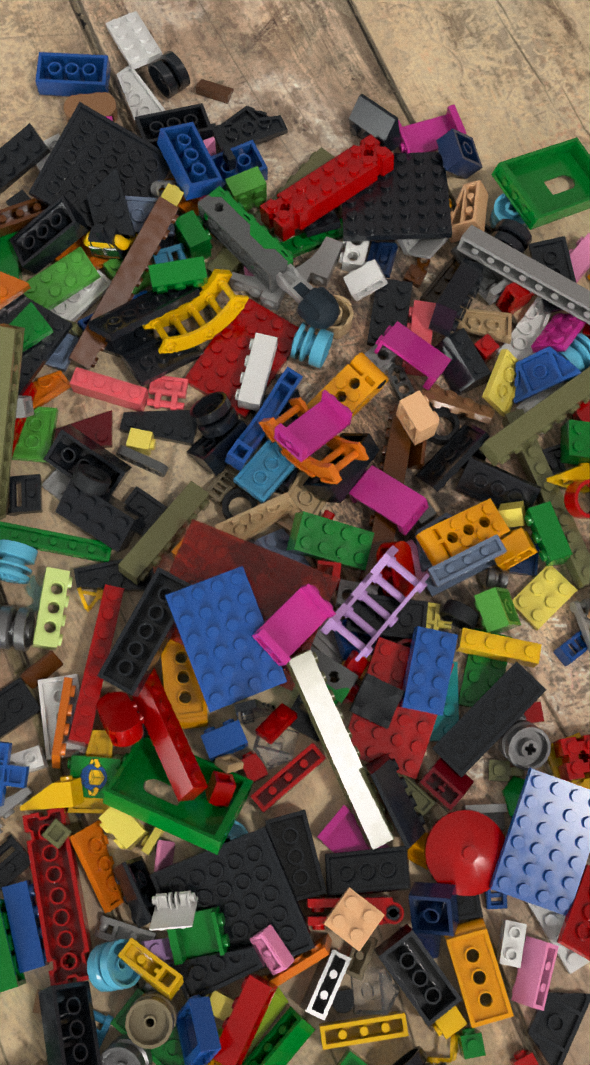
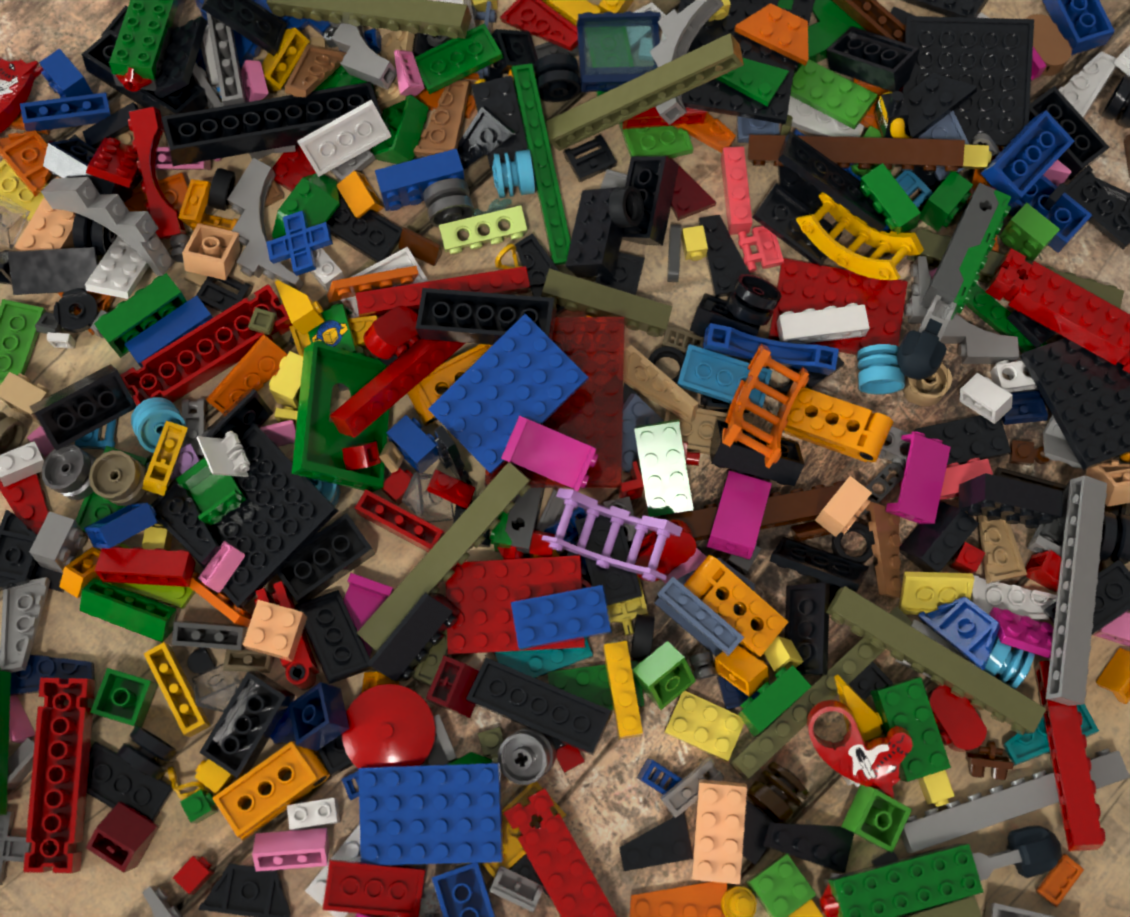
camera: 70 degrees right, 0 degrees up
(314, 427) = (779, 400): dark pink panel -> none
(376, 701) = (508, 575): black brick -> none

